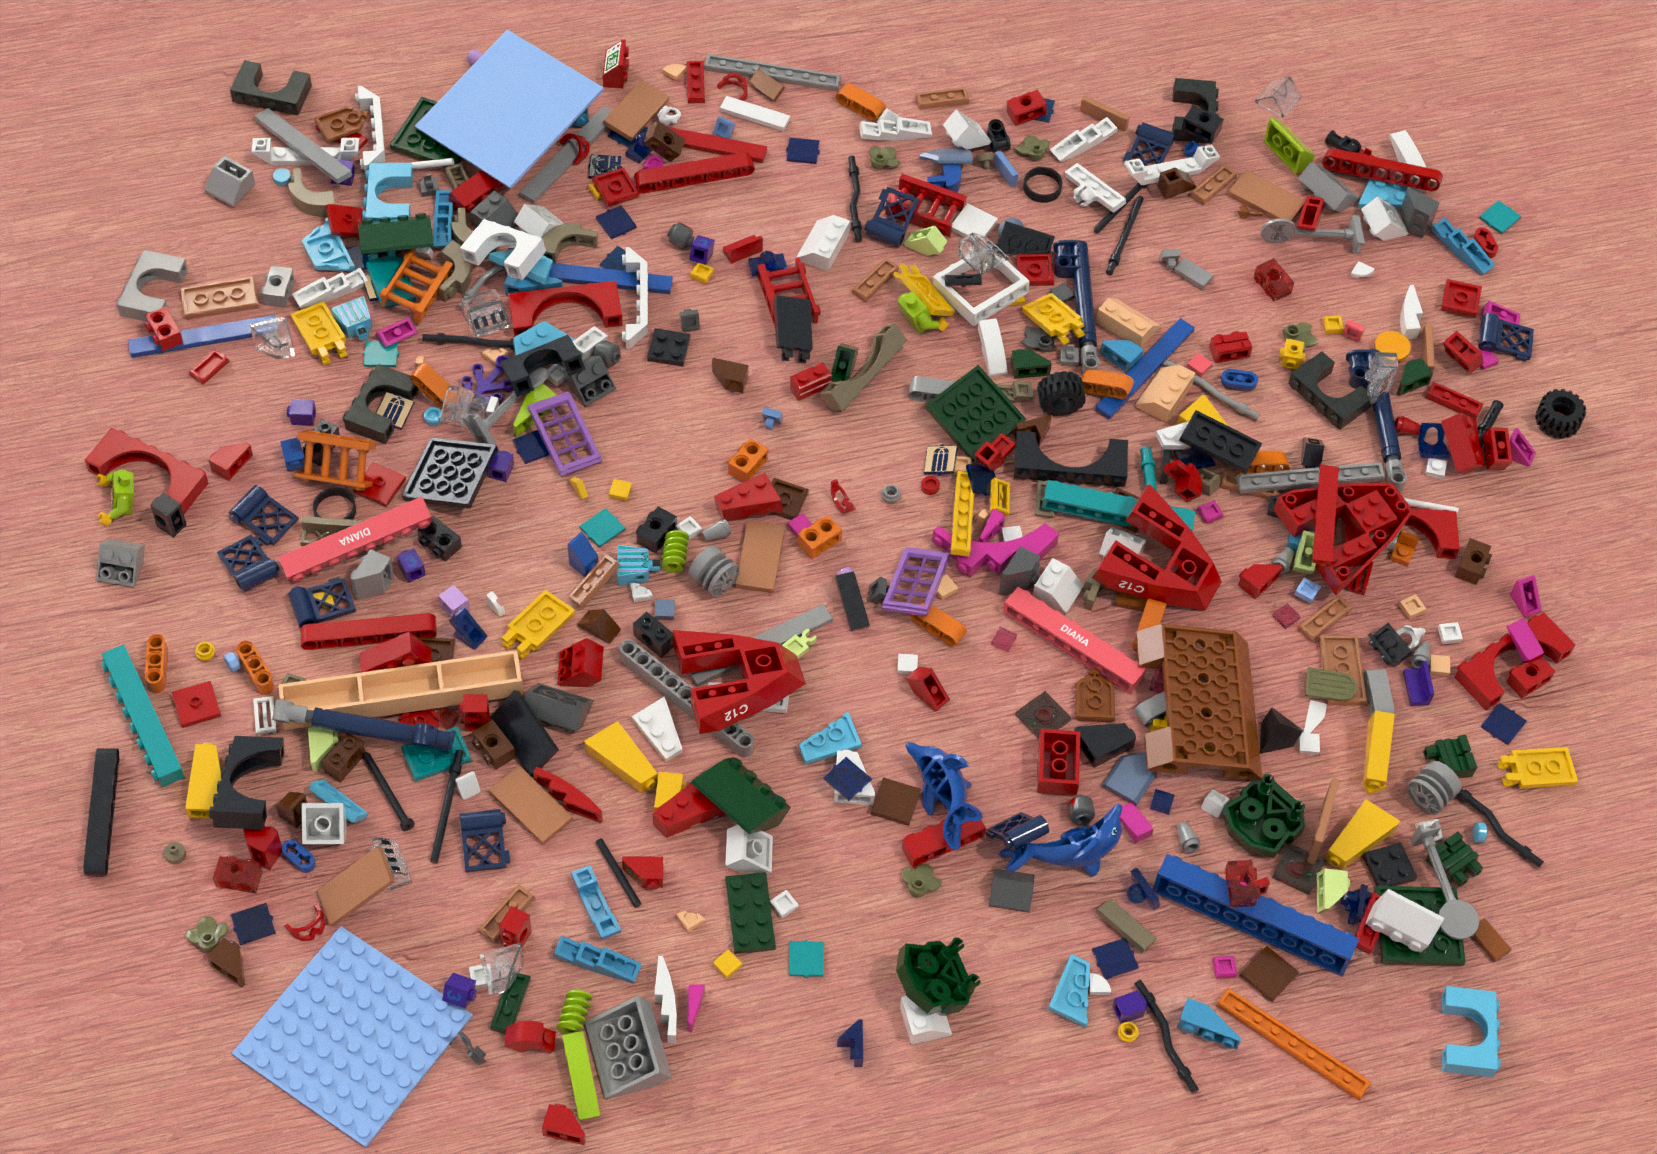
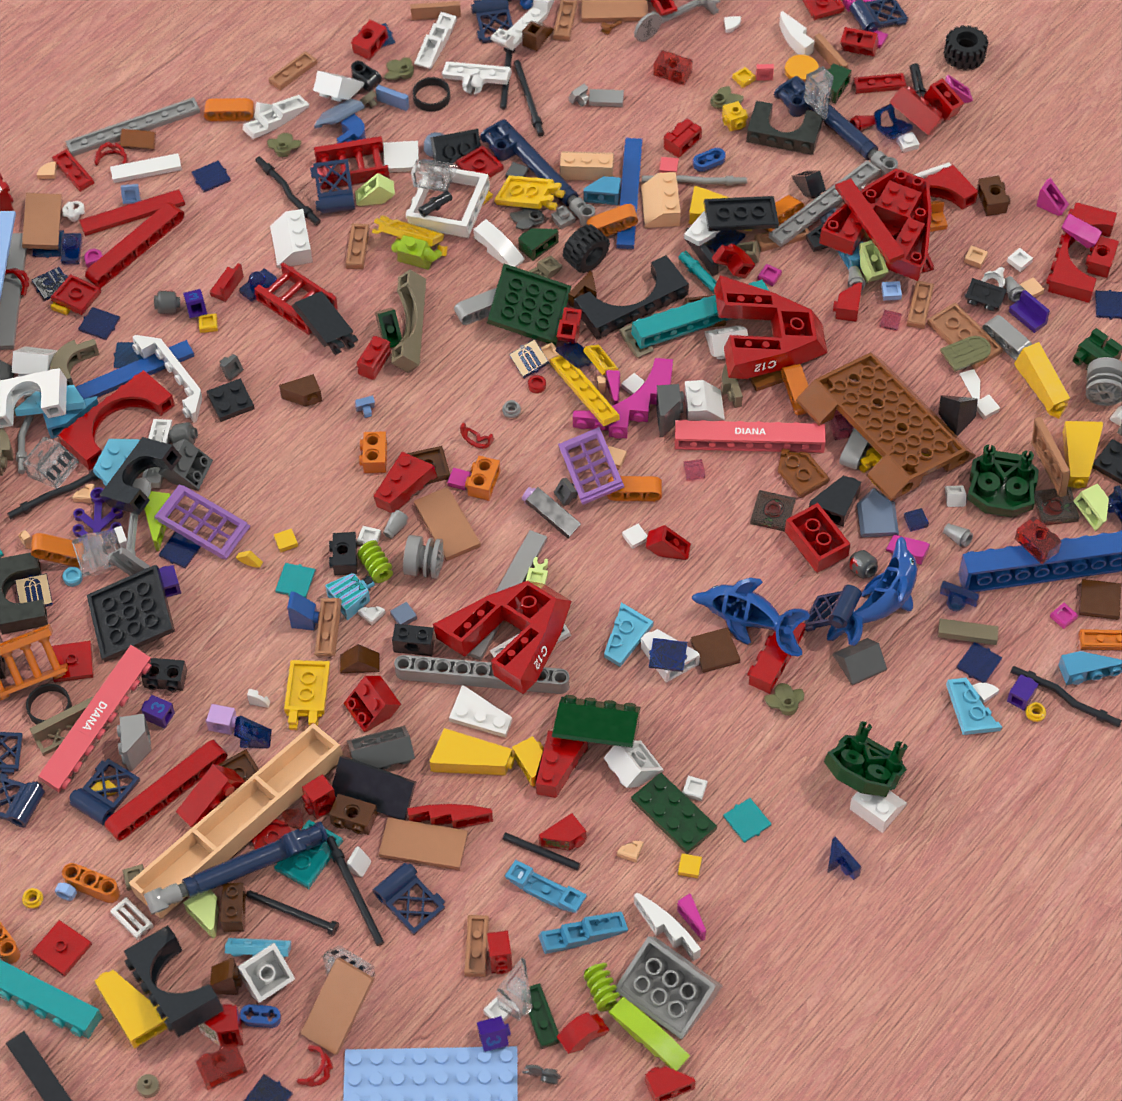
camera: 30 degrees left, 0 degrees up
(664, 141) = (90, 232): reddish brown brick -> none

